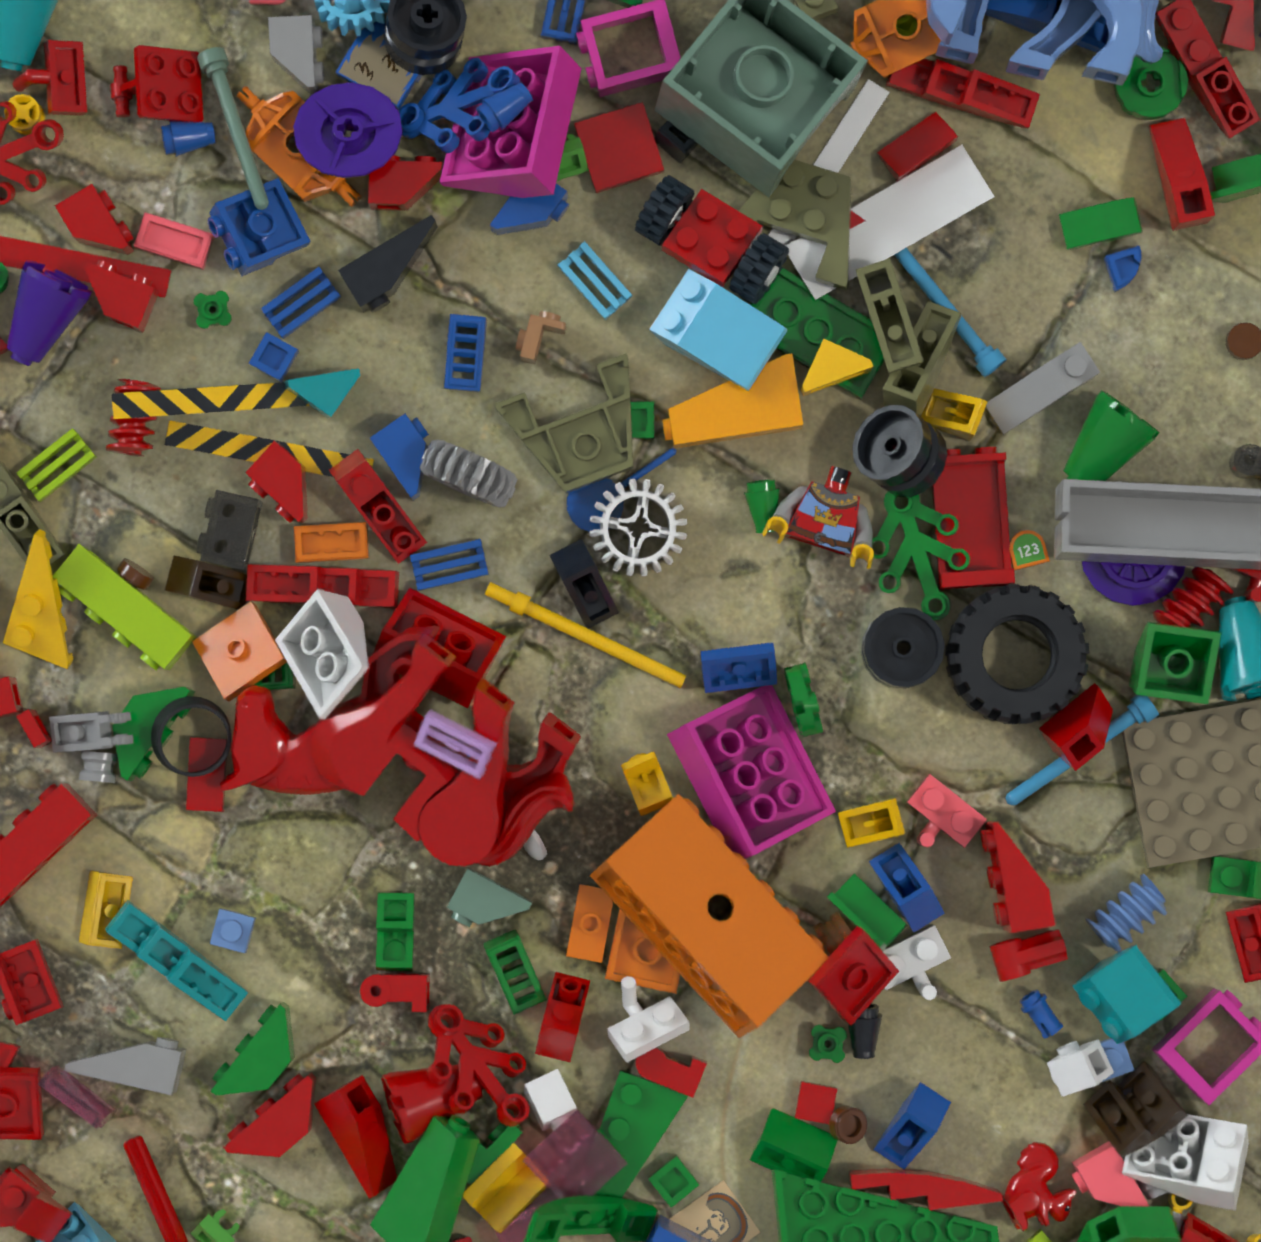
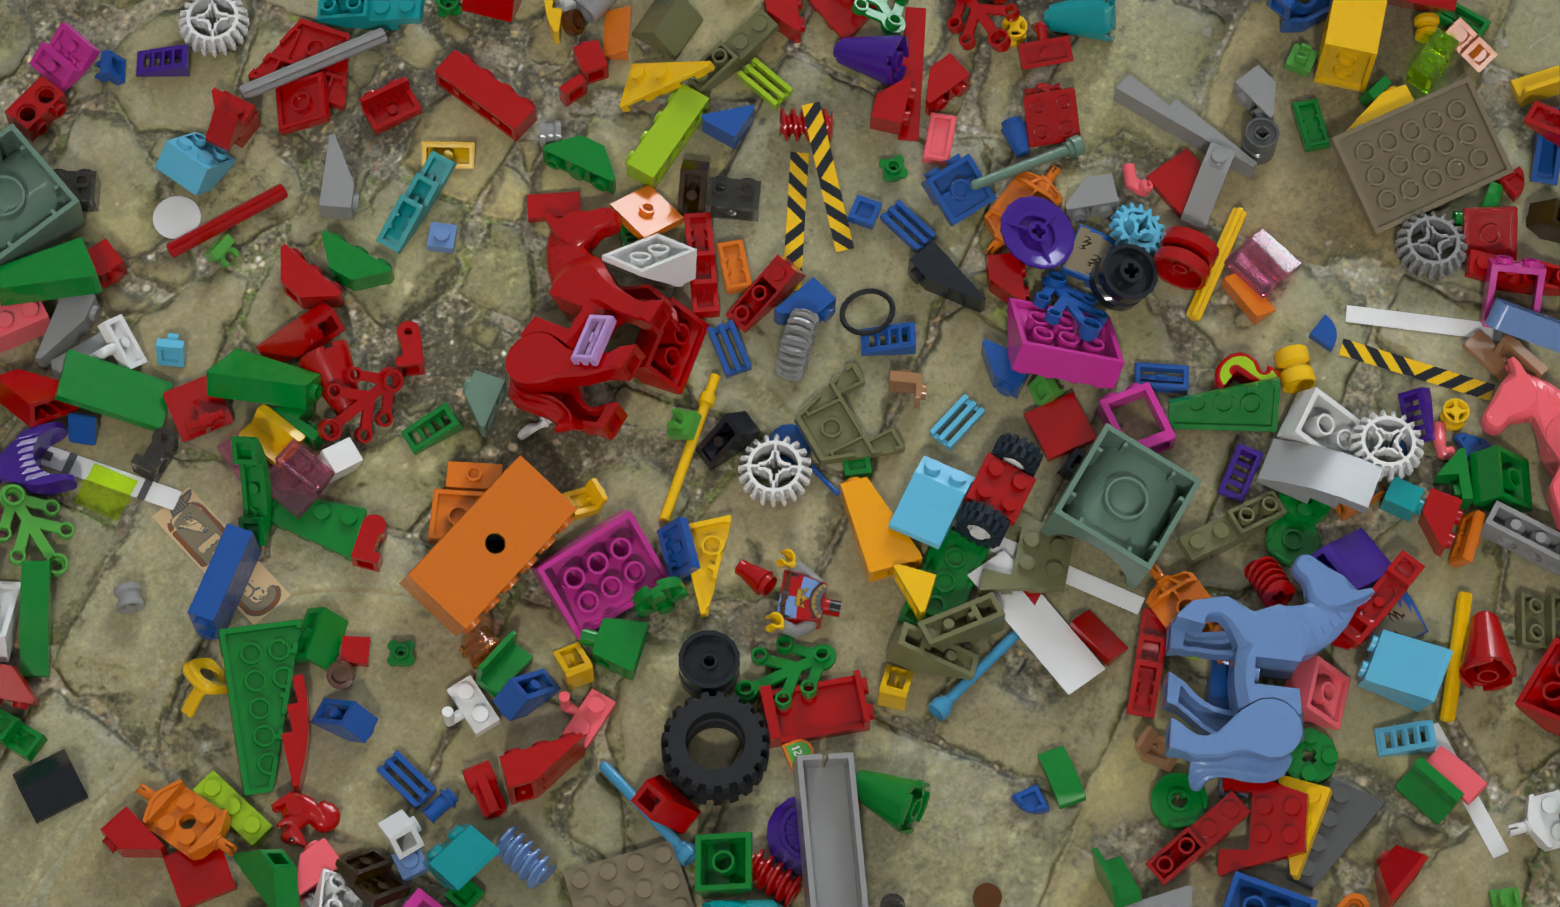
camera: 75 degrees right, 20 degrees down
(77, 1096) = (311, 144): clear pink slope -> none
(87, 731) = (575, 120): light grey hinge -> none
(118, 522) = (728, 125): none -> blue slope
(135, 574) = (693, 140): reddish brown tile -> none
(172, 709) = (603, 193): black tyre -> none
(283, 479) = (775, 228): red slope -> none
(324, 391) = (844, 246): teal slope -> none
(395, 931) = (458, 345): green slope -> none
(454, 370) = (873, 331): none -> black tyre
(504, 106) = (1070, 325): blue cone -> none
(555, 639) = (683, 424): none -> bright green tile
(562, 1017) = (401, 462): red slope -> none
(645, 1027) = (402, 521): white plate -> none
(673, 1181) = (286, 558): green tile -> none
(728, 627) = (710, 542): none -> yellow wing
(762, 501) = (810, 555): green cone -> none
(782, 572) = (756, 577): none -> red cone
(853, 975) = (454, 652): red tile -> none
(854, 763) = (617, 645): none -> green torso
(865, 1032) = (414, 677): black cone -> none
(899, 451) = (859, 641): black wheel -> none
(1007, 1065) = (390, 764): none -> blue tile
(1042, 388) = (927, 749): light grey slope -> none
(1080, 97) = (1152, 749): none -> medium nougat bracket
(1181, 175) = (1108, 829): red slope -> none

